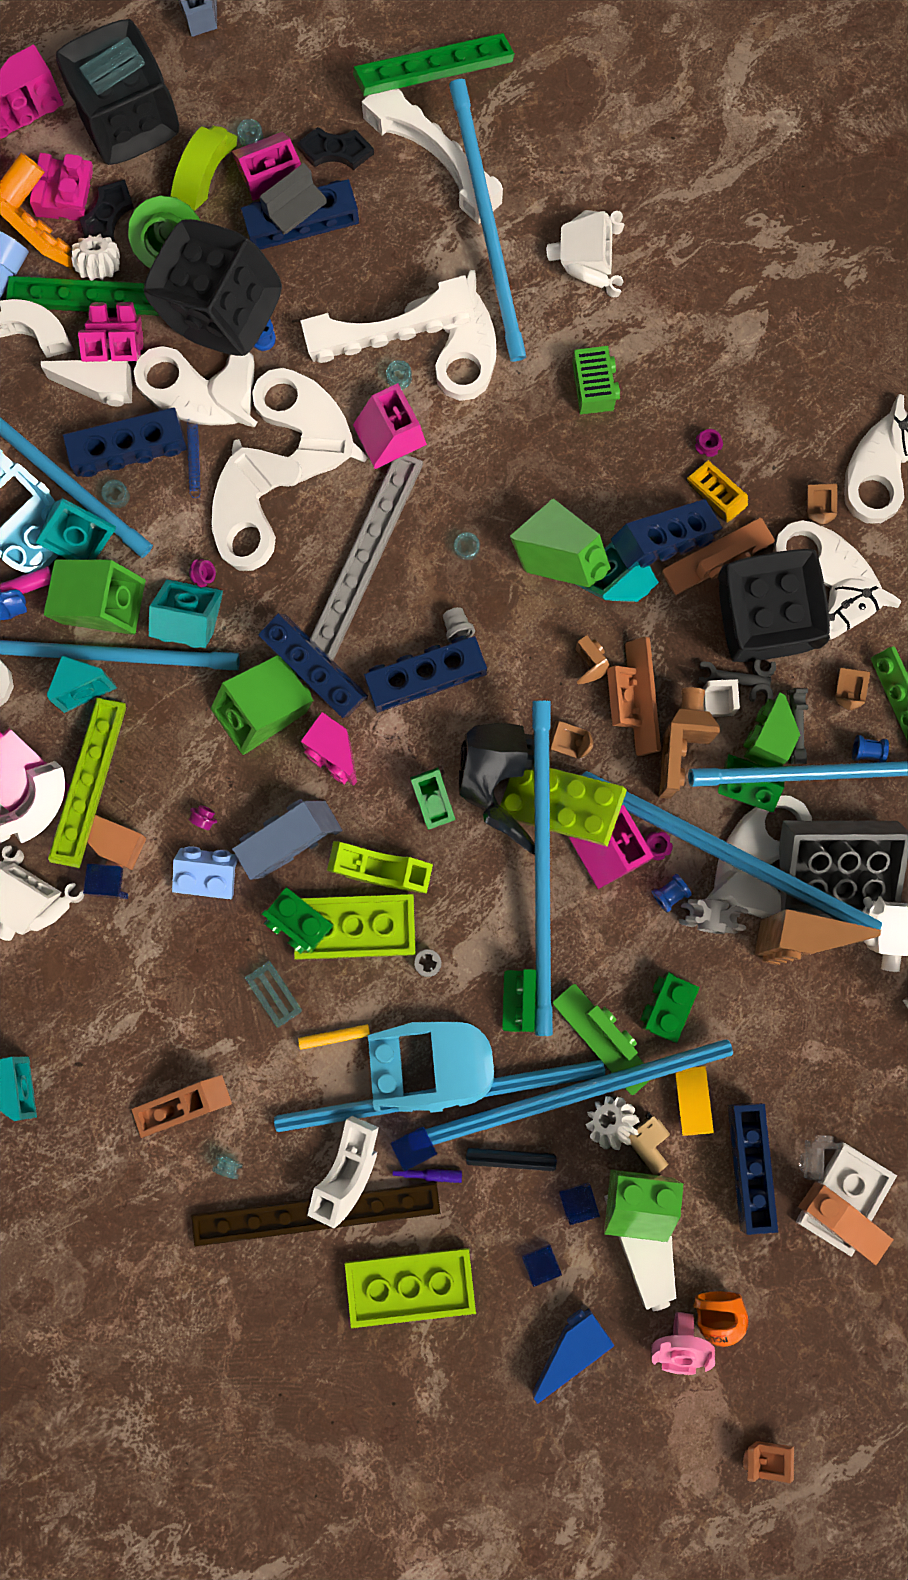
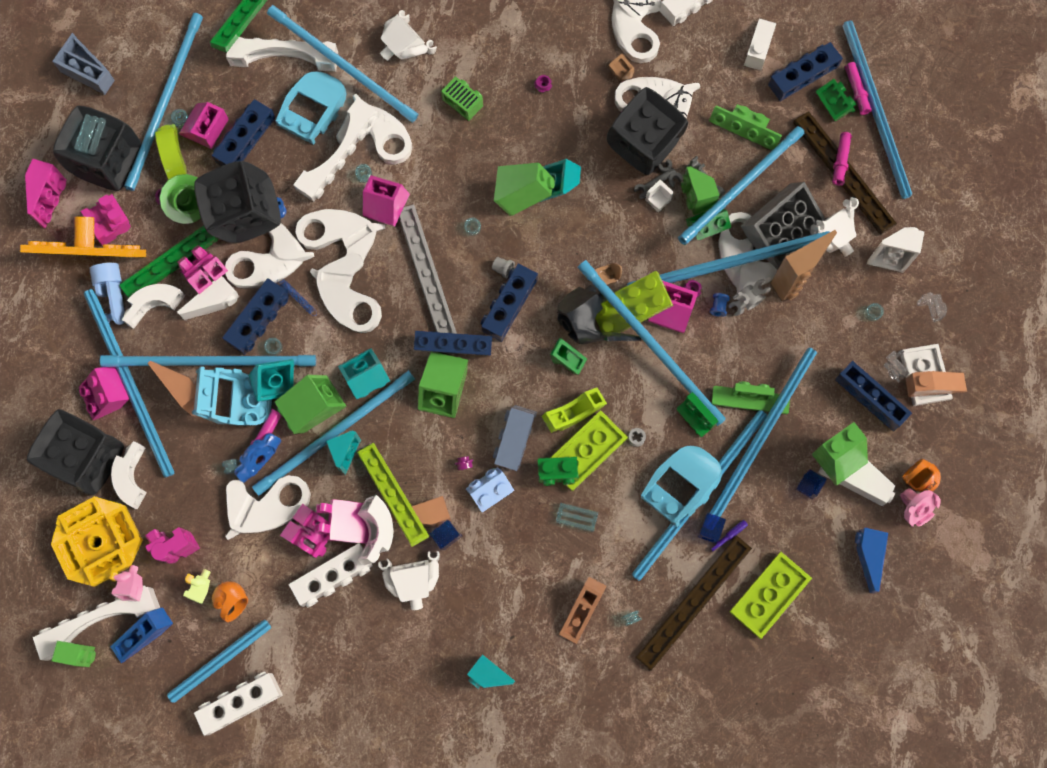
camera: 40 degrees left, 5 degrees down
(95, 257) = (157, 239): white gear -> none
(112, 203) = (141, 221): black tile -> none
(202, 572) = (353, 347): magenta plate -> none
(292, 199) = (236, 130): dark grey panel -> none
(326, 147) = (235, 87): black tile -> none
(330, 745) = (500, 374): dark pink slope -> none
(334, 1036) = (624, 511): yellow piece -> none
(348, 1176) = (692, 565): white arch -> none
(359, 36) = (134, 174): none -> dark azure piece
(440, 233) = (321, 89): none -> medium azure slope
(511, 1159) = (760, 493): black axle -> none
(541, 1265) = (820, 529): clear blue tile -> none
(593, 655) = (583, 227): medium nougat plate -> none
(617, 1112) = (797, 435): white gear -> none
(634, 696) = (618, 228): nougat bracket -> none
(649, 1136) = (813, 429): tan piece -> none
(666, 534) = (566, 139): dark blue brick -> none
(670, 1007) = (767, 358): green bracket -> none
(688, 726) = (657, 232): medium nougat plate -> none
(694, 1101) = (818, 390): yellow slope -> none
(710, 559) = (596, 132): nougat bracket -> none
(735, 498) = (575, 96): yellow slope -> none
(769, 1462) = (1004, 522): nougat bracket -> none
(851, 688) = (713, 141): medium nougat plate -> none
(862, 1062) = (871, 317): none -> clear light blue bush
(870, 749) = (747, 162): blue bush -> none

